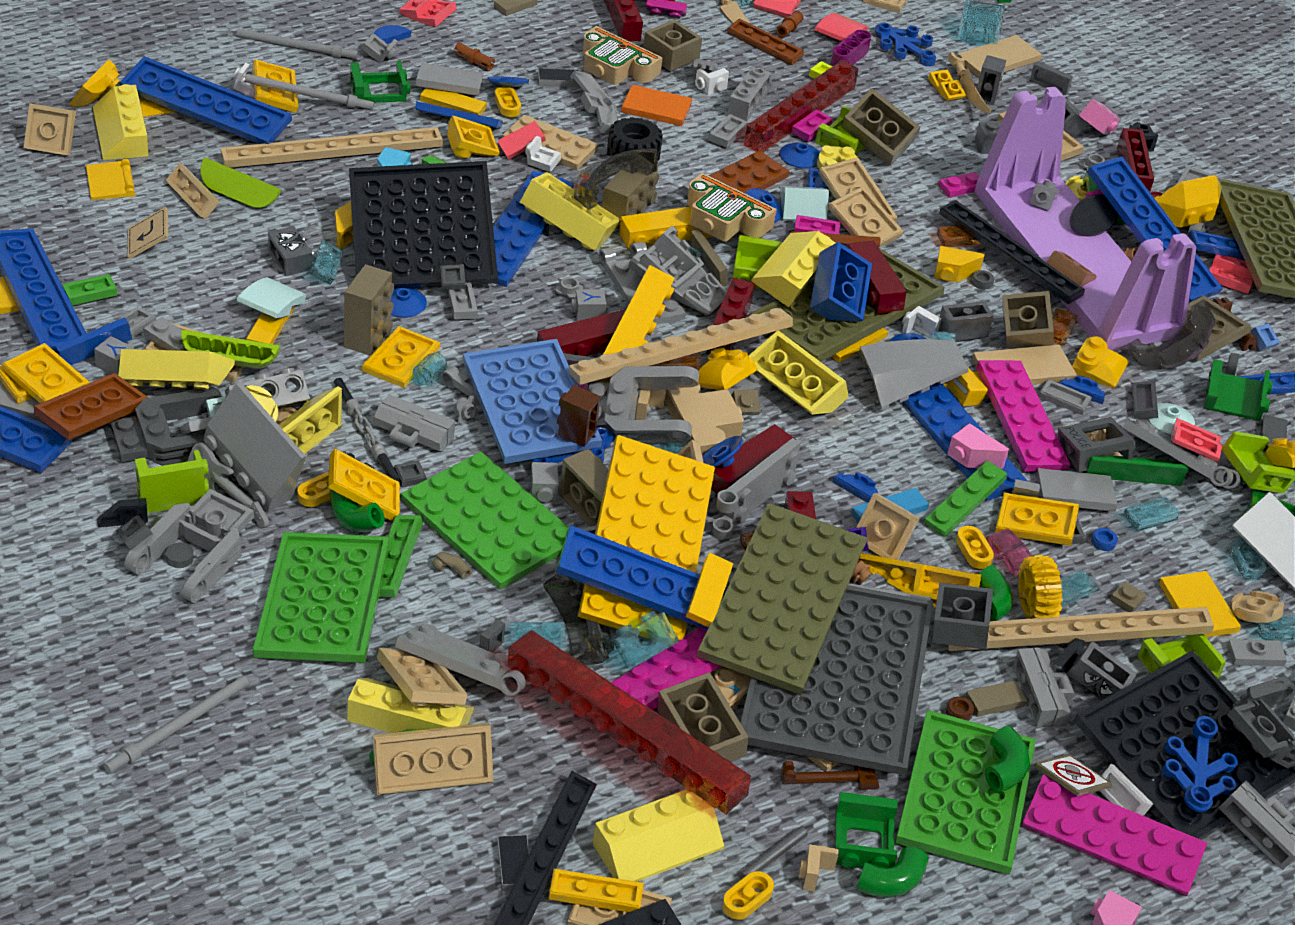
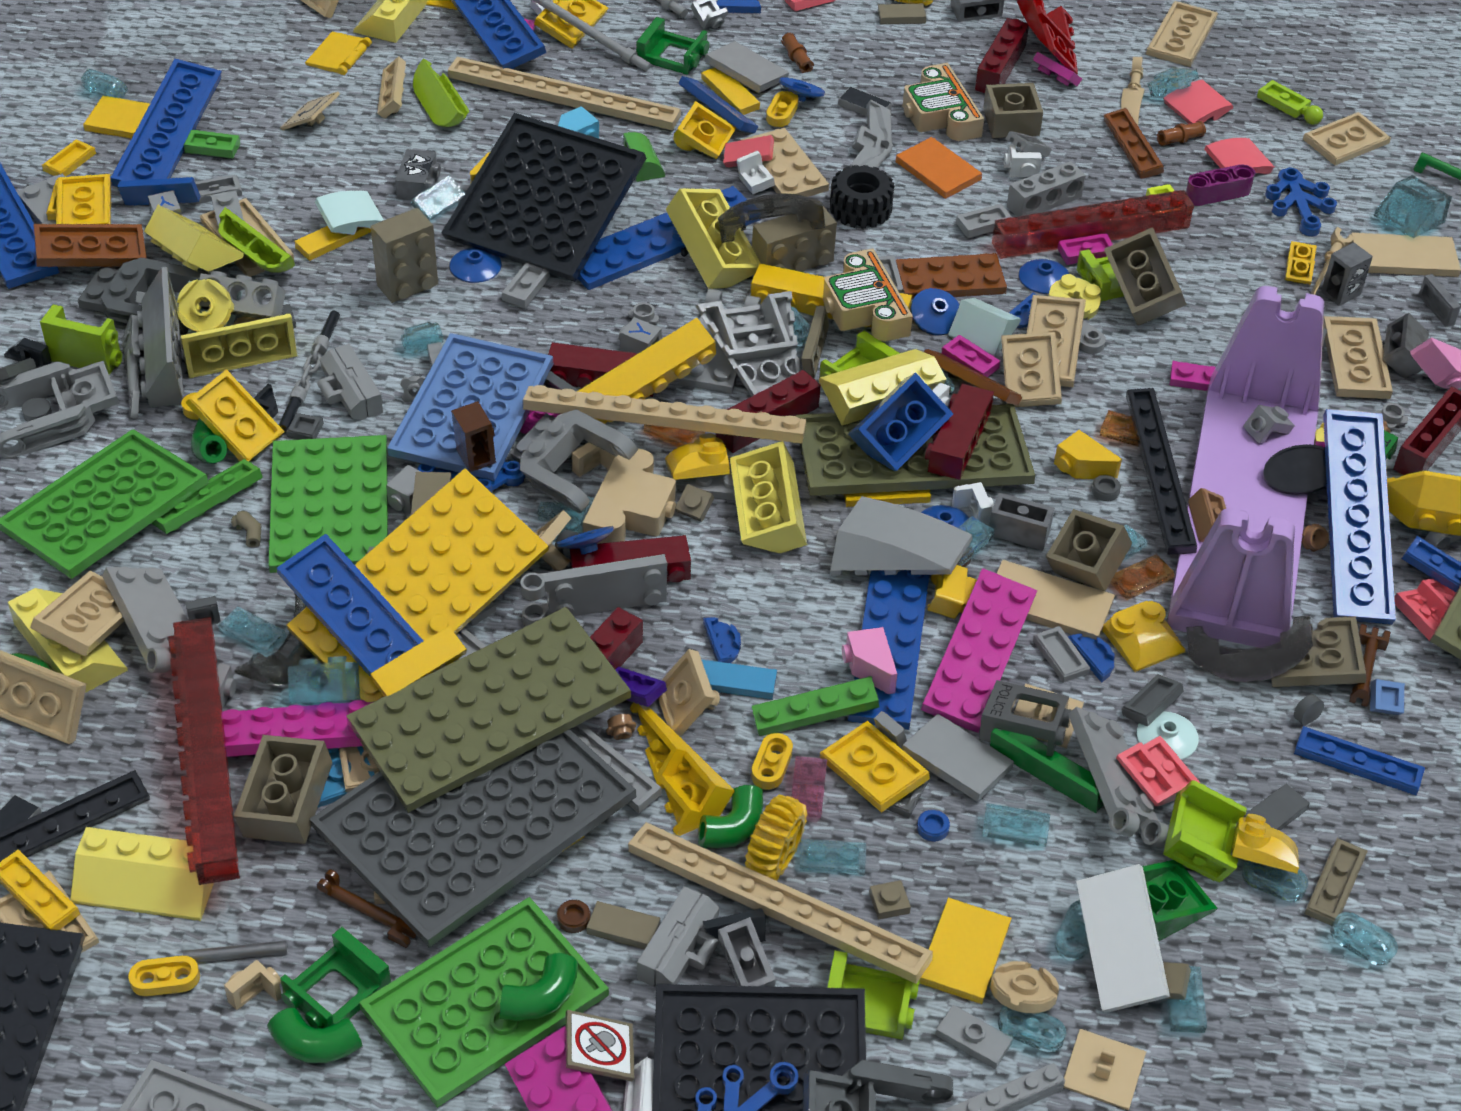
camera: 40 degrees right, 5 degrees up
(399, 355) = (414, 309): yellow tile -> none
(452, 277) = (529, 257): dark grey tile -> none
(962, 616) = (651, 820): dark grey brick -> none
(1237, 394) = (1271, 741): green panel -> none

